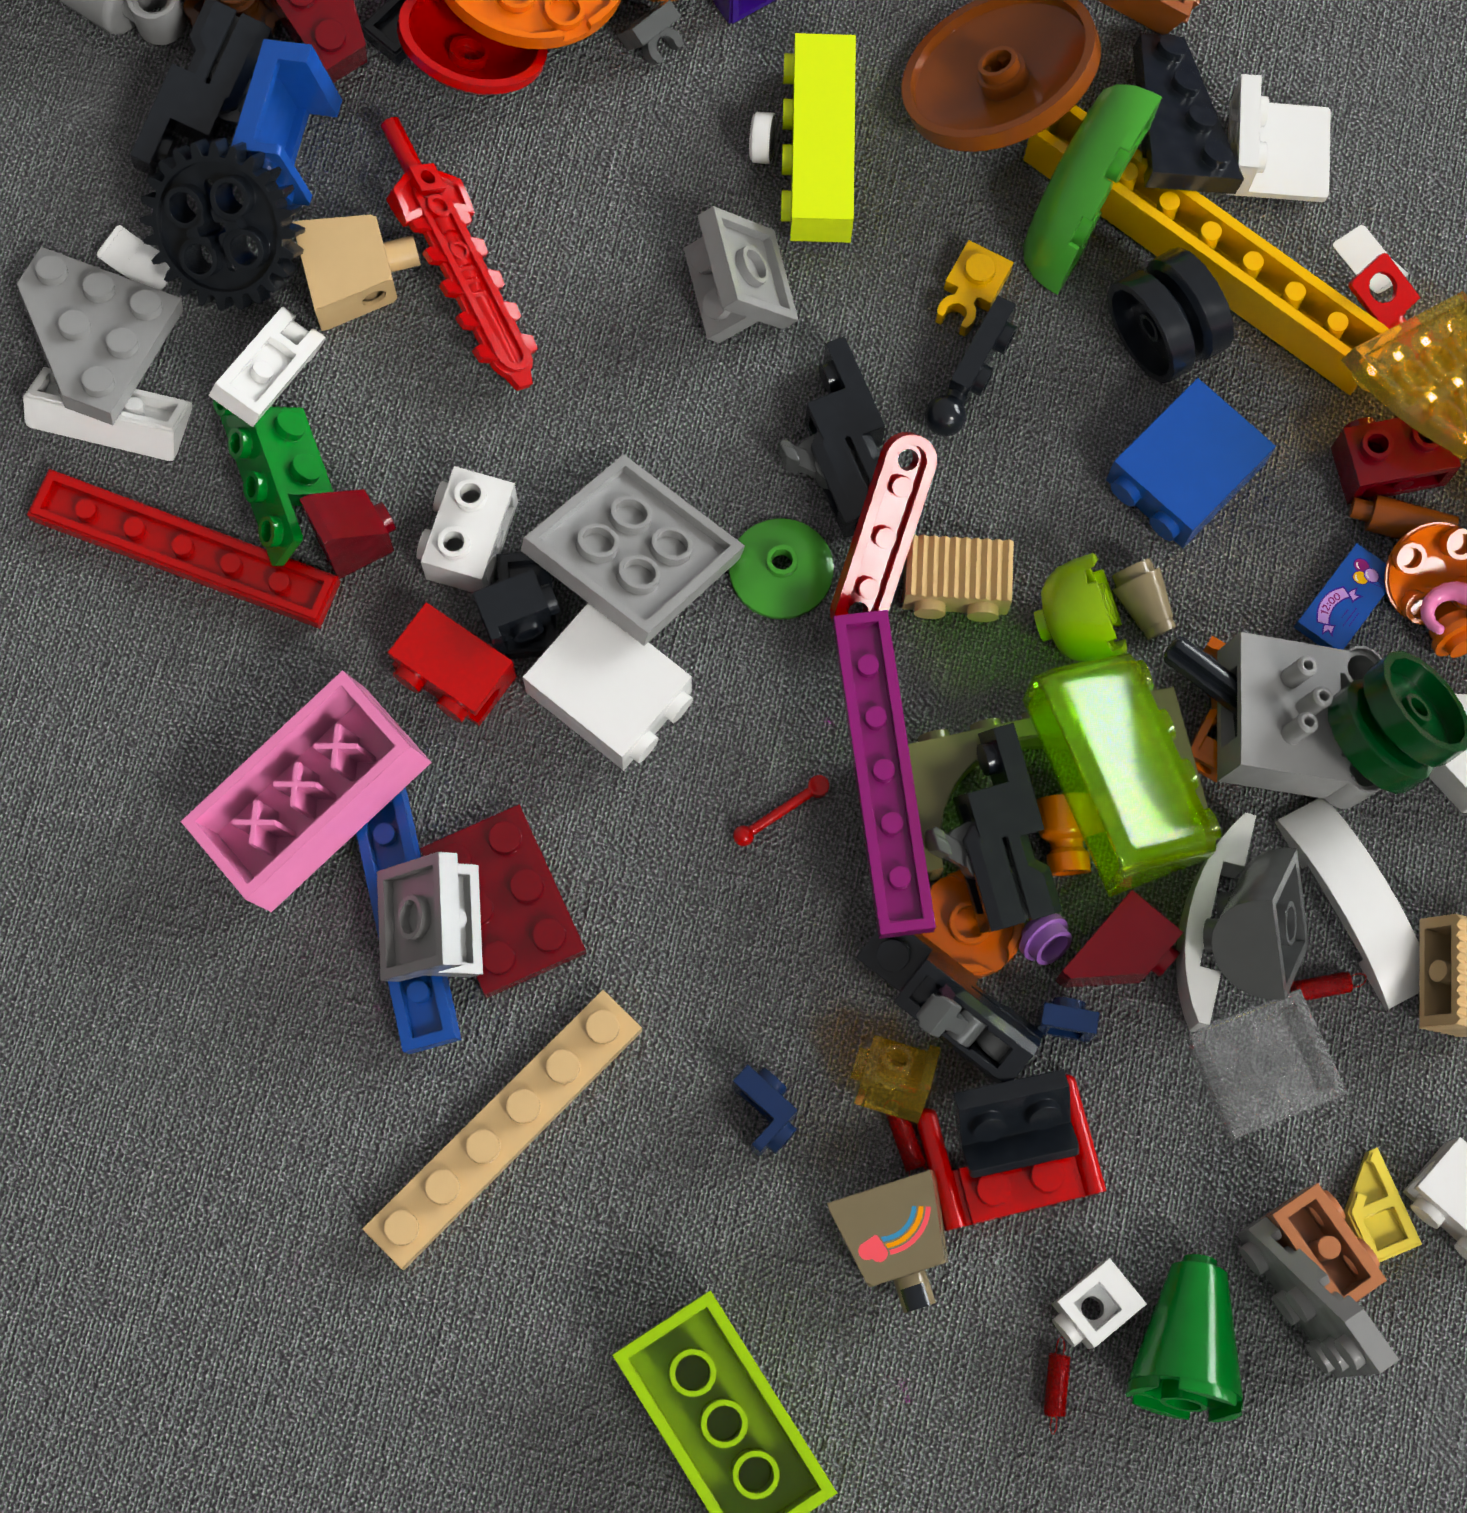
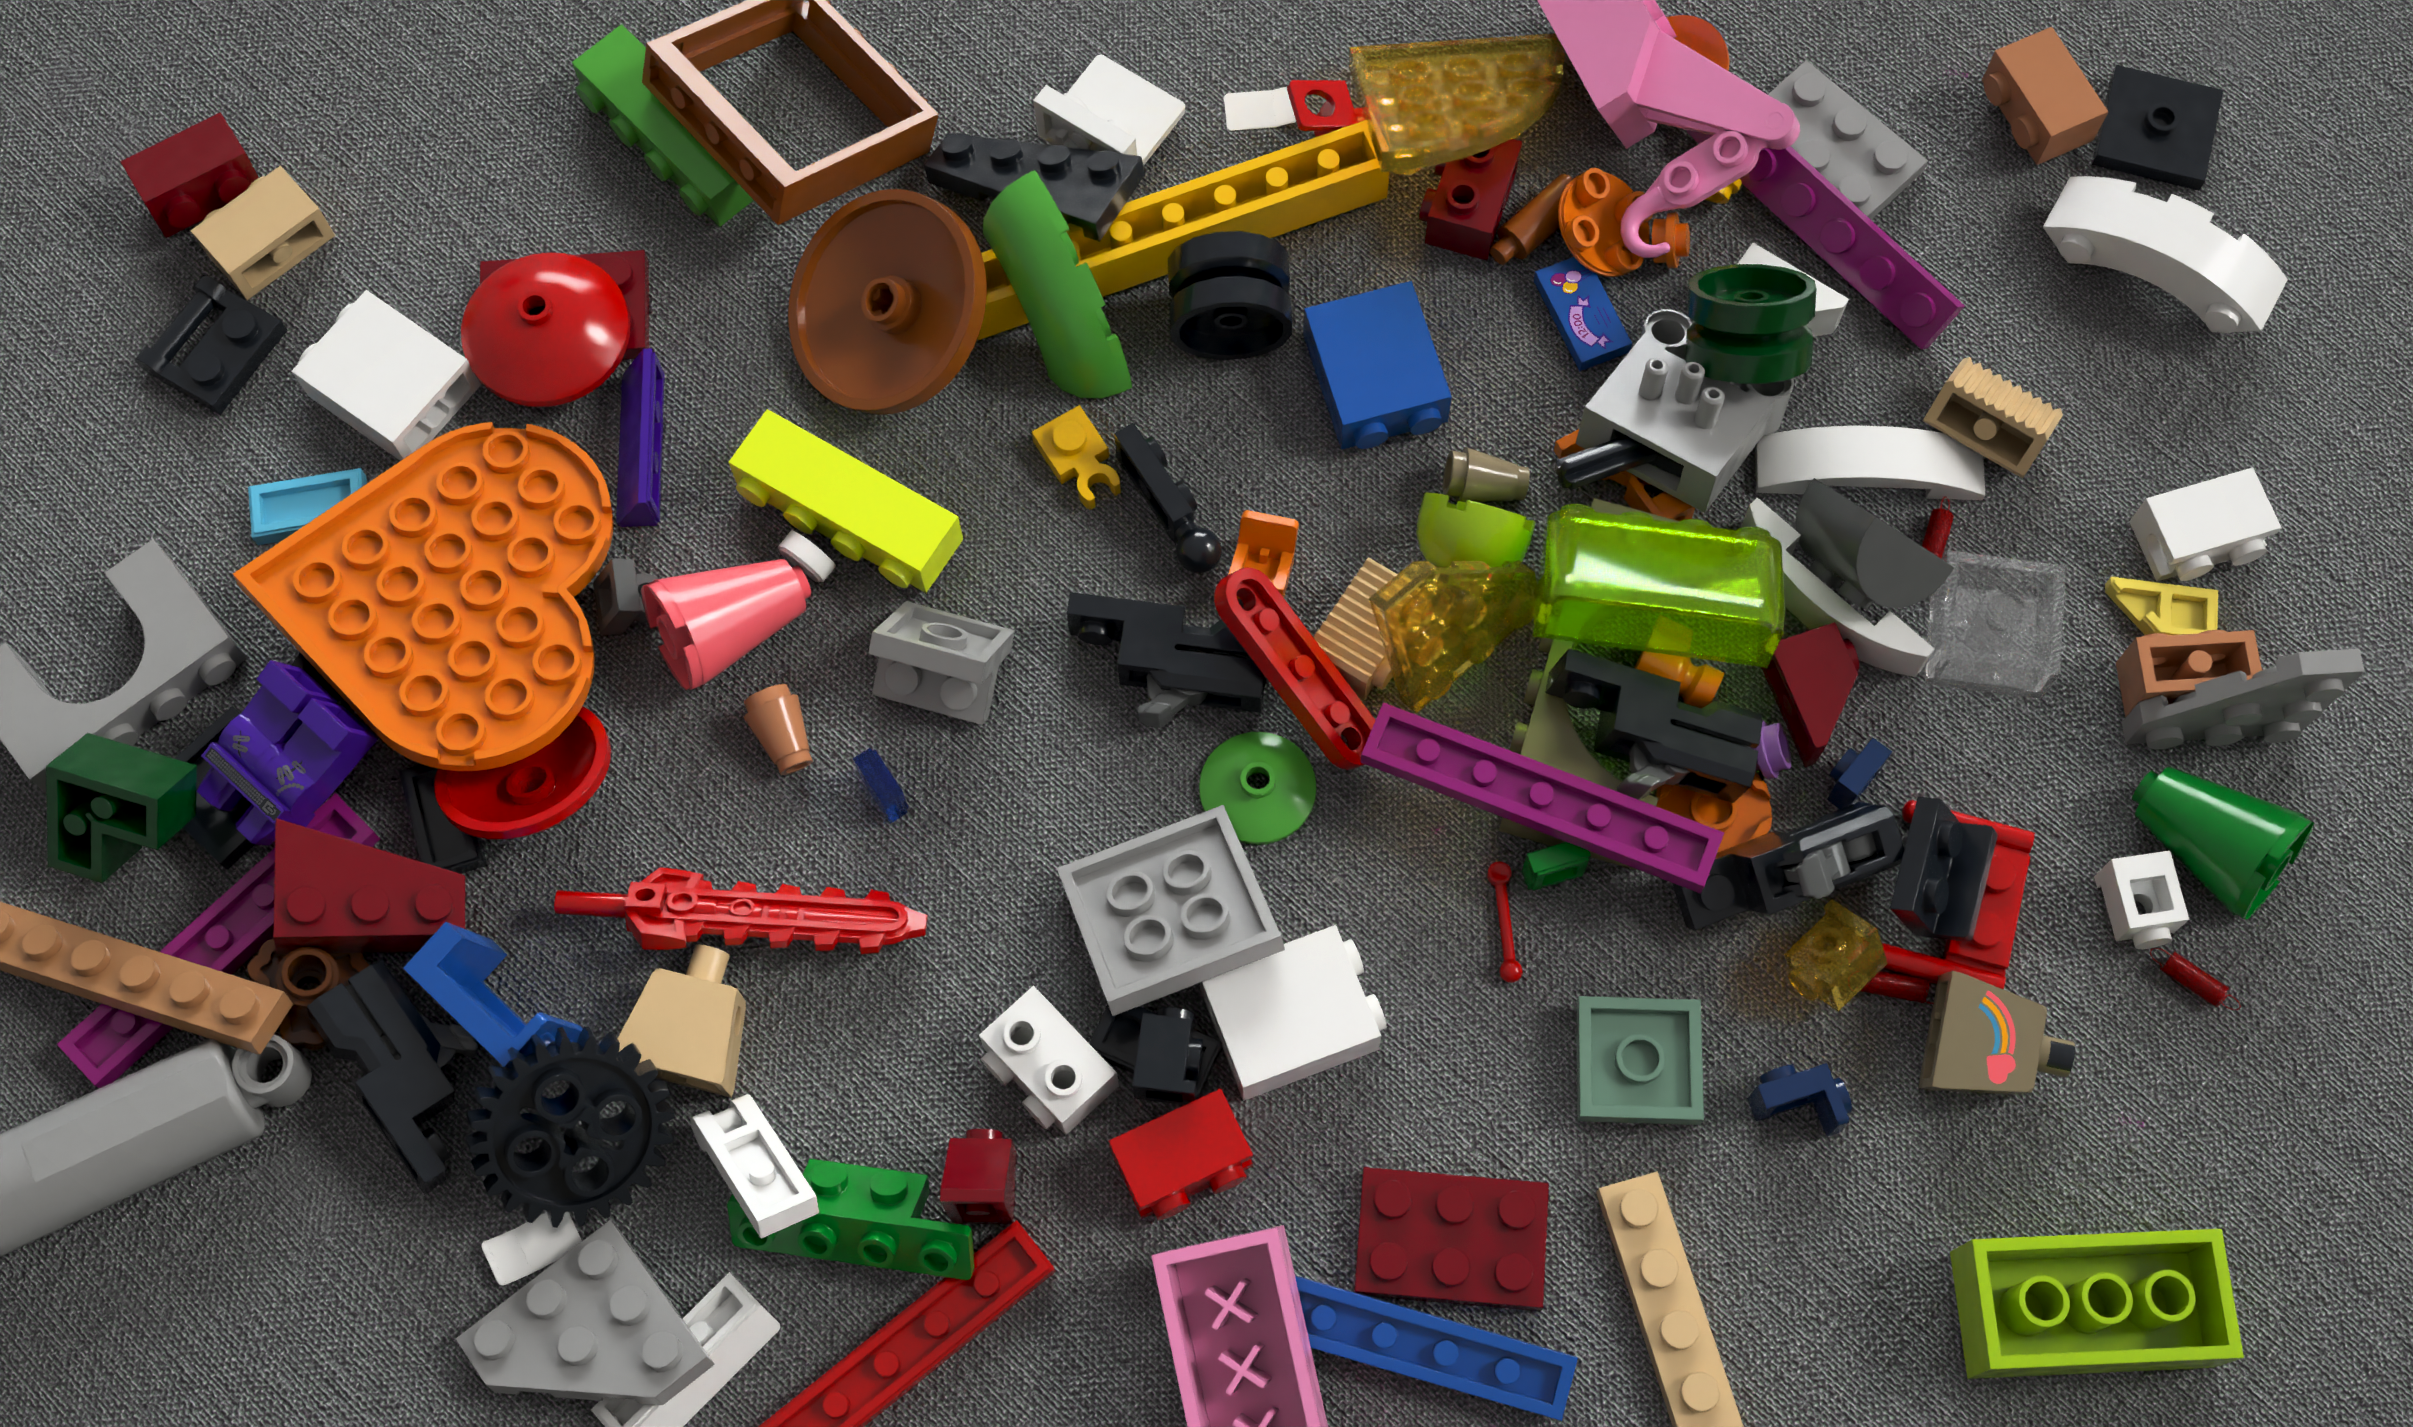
camera: 55 degrees left, 5 degrees down
(429, 919) = (1449, 1319): light grey bracket -> none
(613, 293) = (881, 784): none -> clear blue tile
(616, 197) = (779, 727): none -> nougat cone
(677, 104) = (721, 615): none -> coral cone
(724, 968) = (1639, 1060): none -> sand green plate
(843, 820) = (1554, 865): none -> green tile
(970, 467) = (1266, 545): none -> orange bracket
(987, 623) = (1448, 620): none -> clear yellow plate

